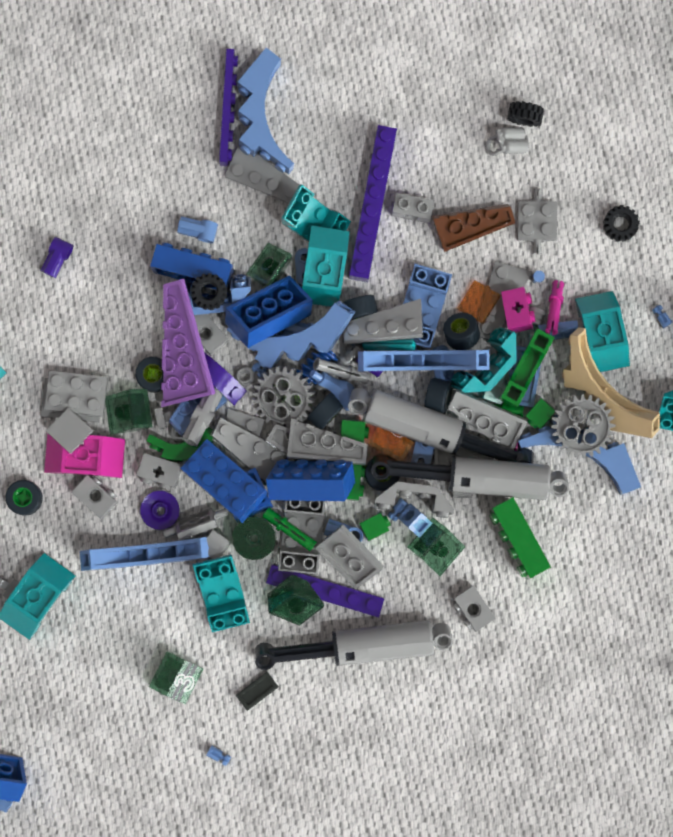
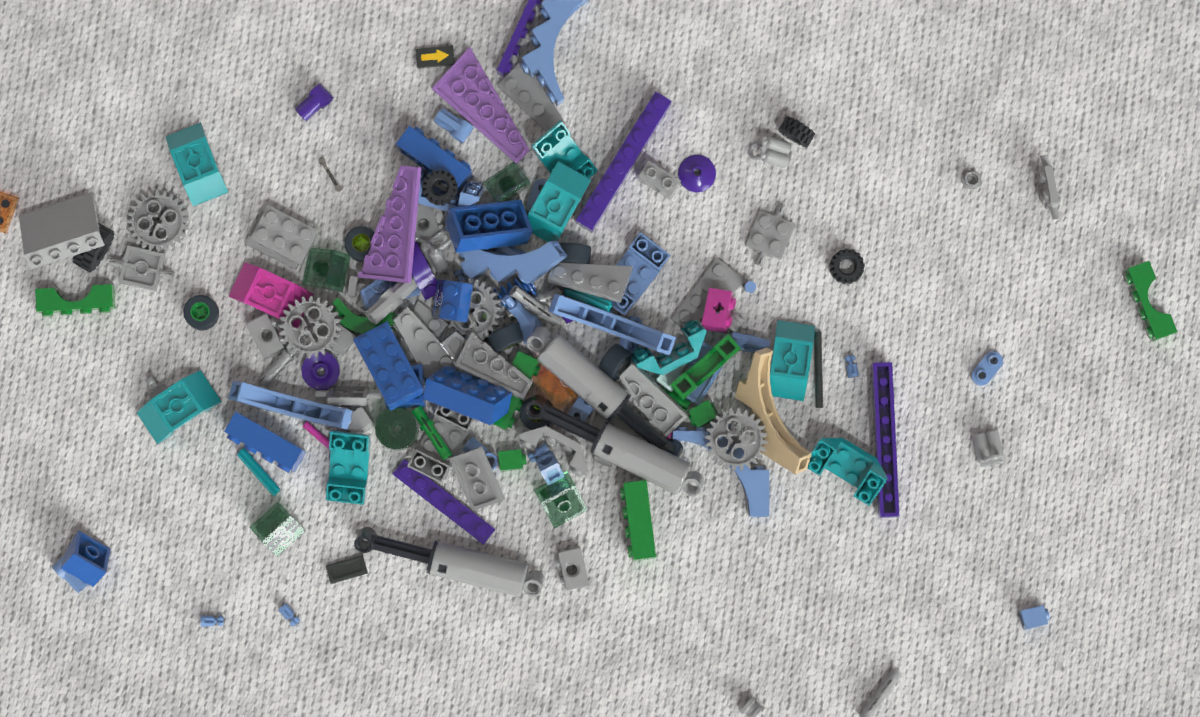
camera: 20 degrees right, 0 degrees up
(69, 430) = (265, 267): light grey piece -> none
(85, 310) = (322, 161): none -> clear smoke hinge
(117, 520) = (277, 366): none -> light grey pin
(131, 598) = (264, 441): none -> blue brick
(137, 629) = (258, 471): none -> teal axle
(144, 790) = (211, 620): none -> medium blue piece
(146, 459) = (325, 319): none -> light grey gear
(155, 171) = (435, 57): none -> pearl dark grey tile
(180, 572) = (317, 434): none -> dark pink bar
(210, 197) = (475, 99): none -> medium lavender wing
(227, 358) = (434, 254): none -> light grey piece
(260, 395) = (452, 300): none -> blue slope
(294, 600) = (411, 499): clear green slope -> none
(443, 198) = (690, 180): none -> dark purple dish
(461, 331) = (659, 310): black wheel -> none
(468, 225) = (704, 215): reddish brown wing -> none
(479, 301) = (686, 289): clear orange piece -> none
(555, 300) = (757, 316): dark pink pin -> none
(632, 332) = (818, 369): none -> pearl dark grey bar

